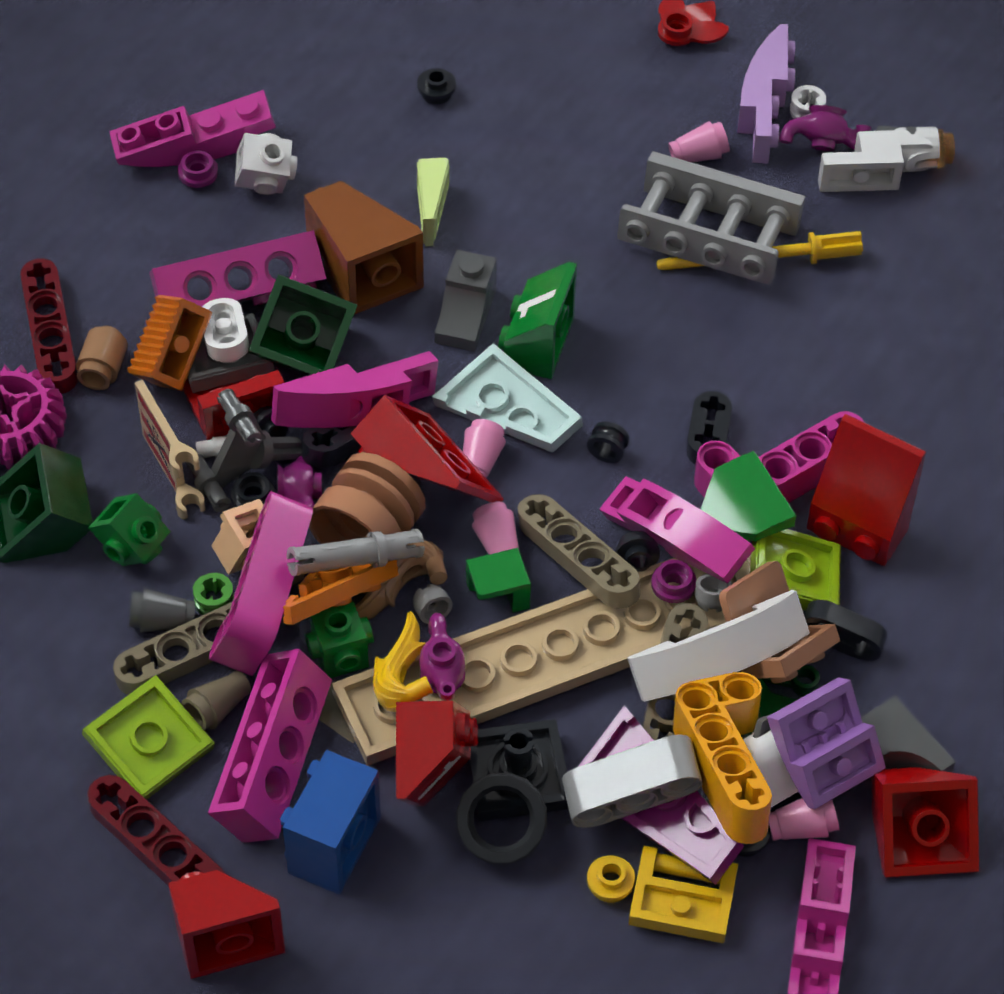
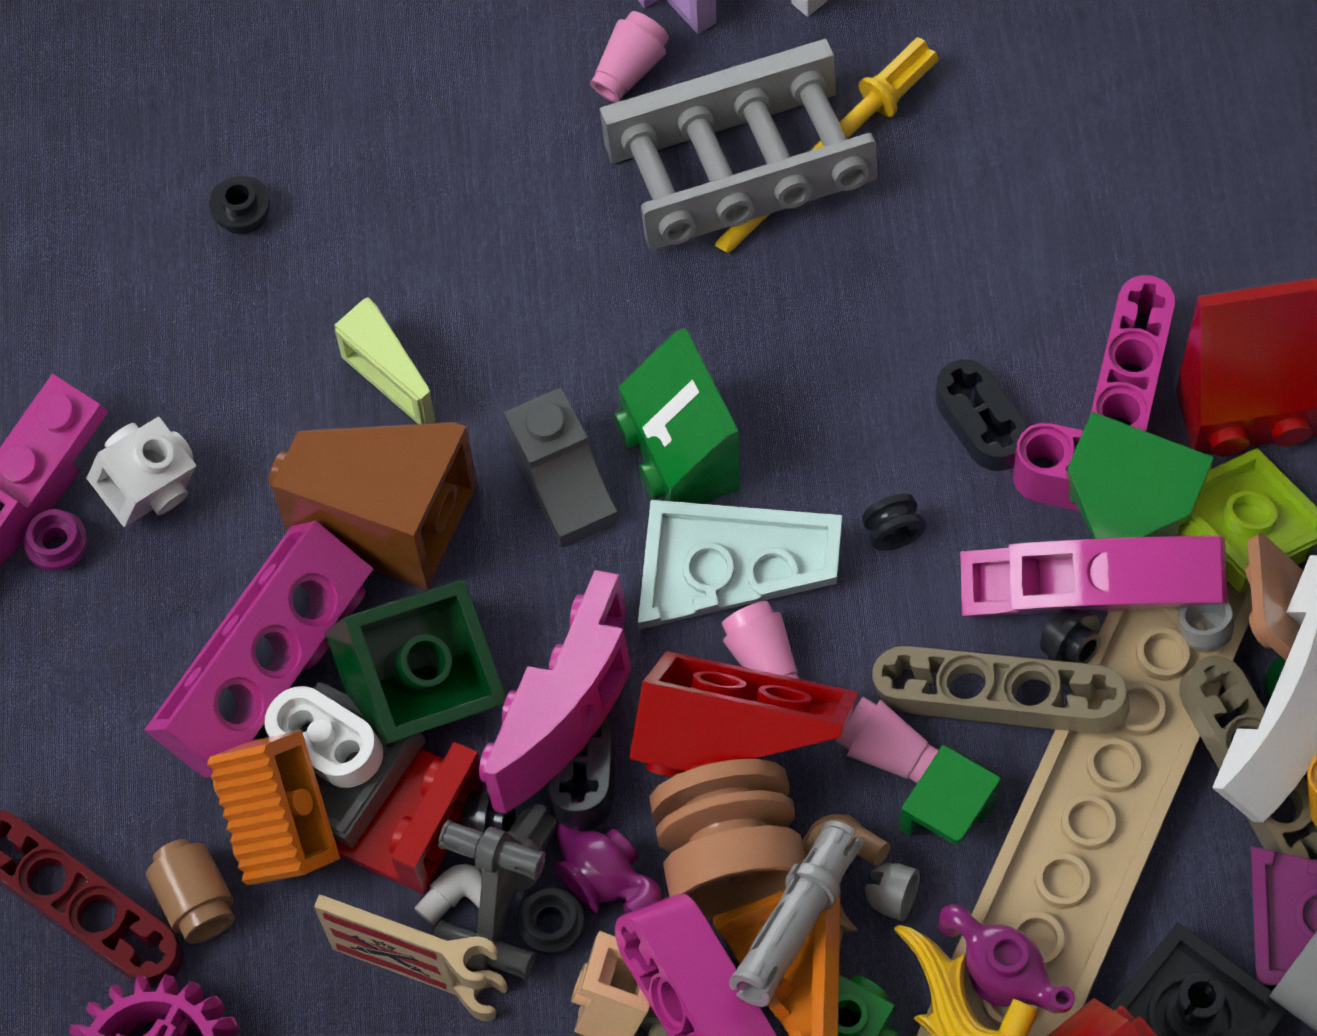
camera: 35 degrees left, 10 degrees up
(677, 572) = (1151, 628): magenta plate -> none

